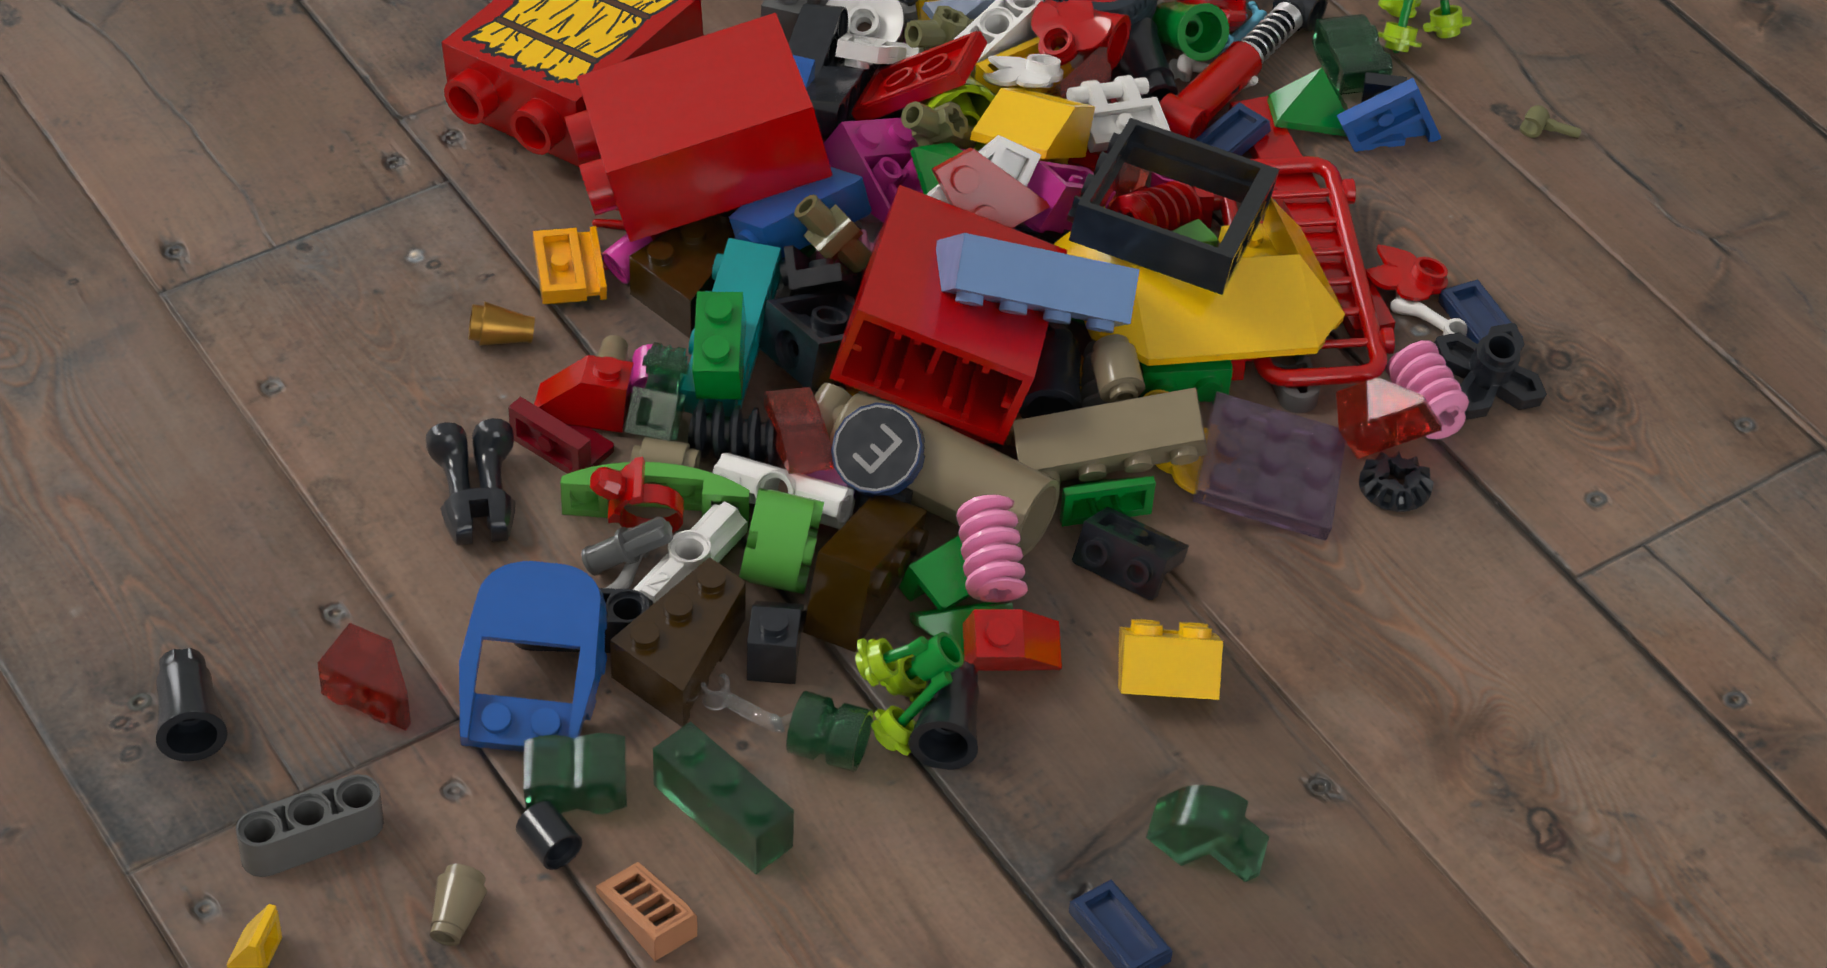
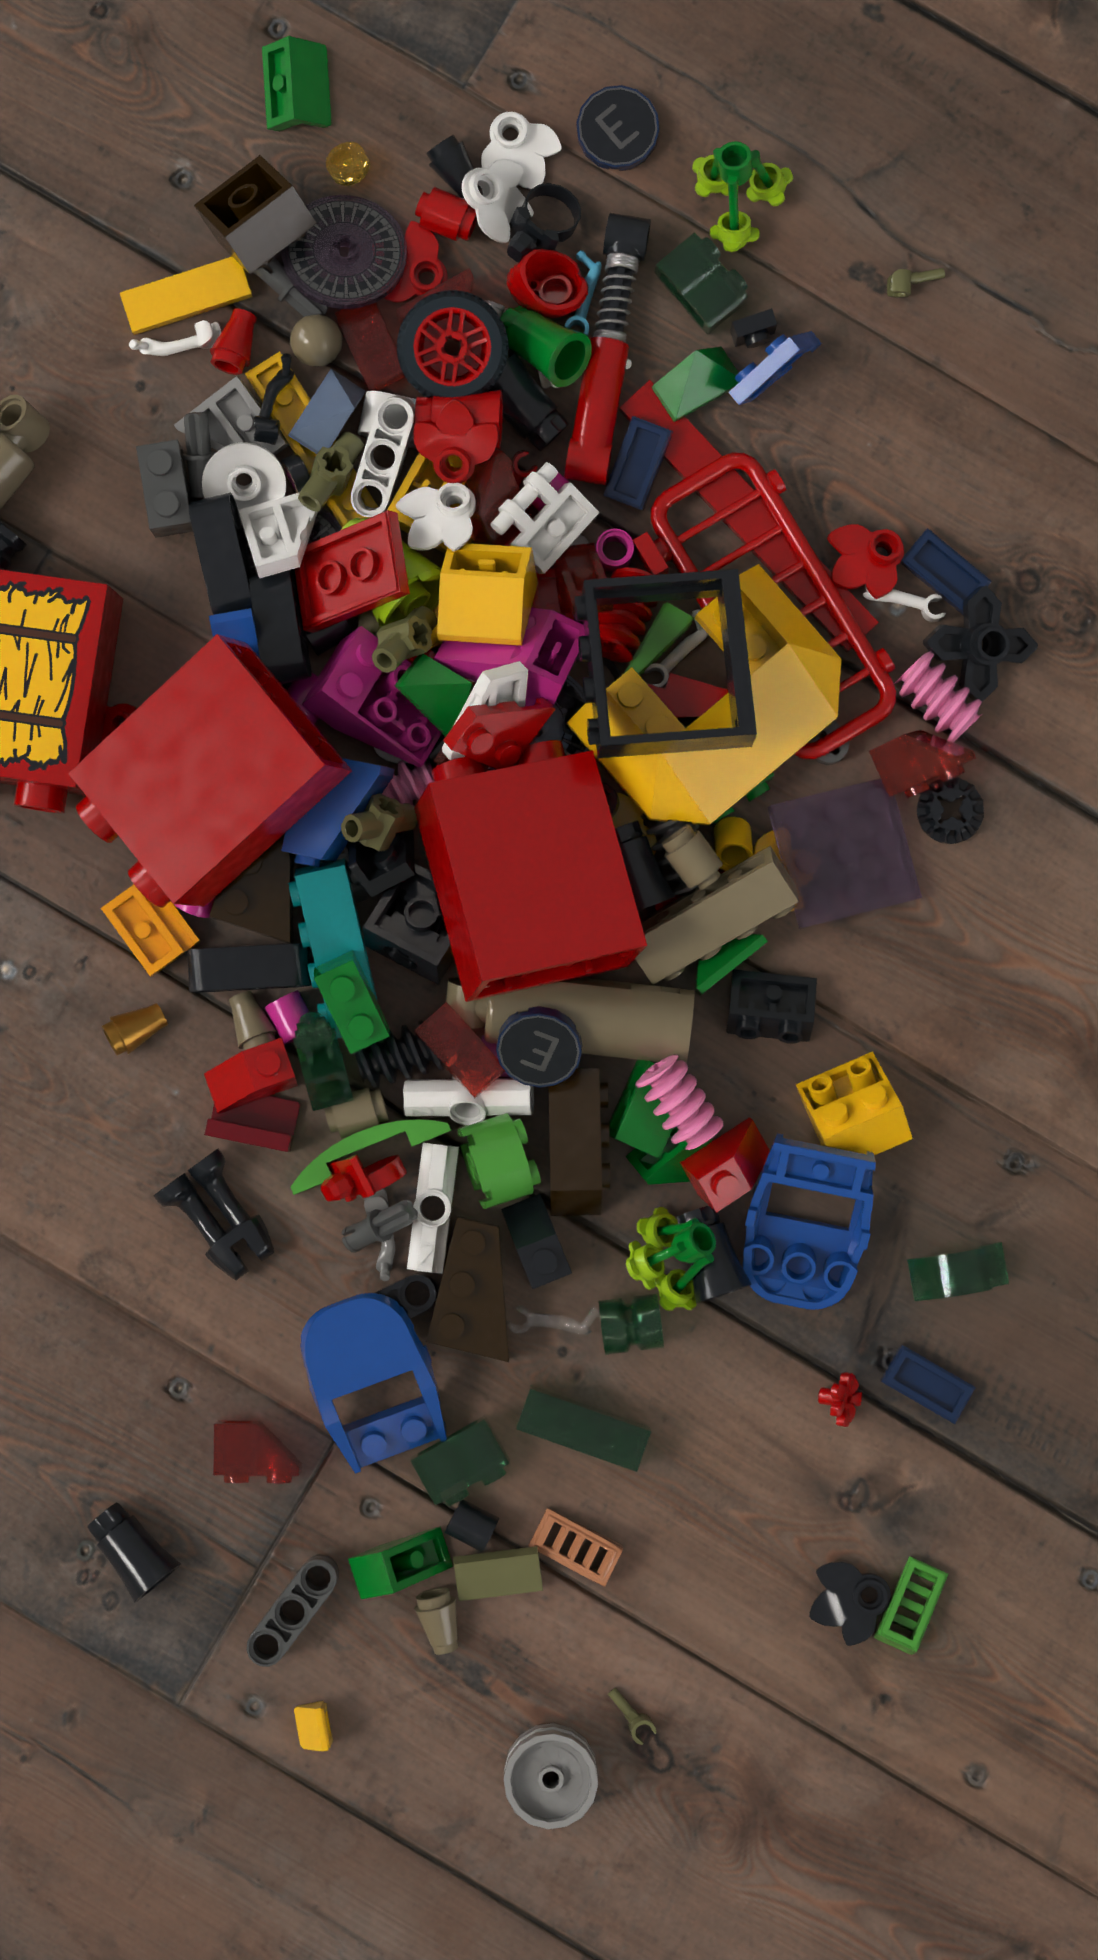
camera: 25 degrees left, 40 degrees up
(447, 828) = (400, 1563): none -> green slope
(547, 891) = (498, 1573): none -> olive tile
(634, 317) = (248, 968): none -> black beam
(1019, 895) = (842, 1398): none -> red plant
(1036, 280) = (598, 838): medium blue slope -> none
(1041, 763) = (799, 1258): none -> blue slope

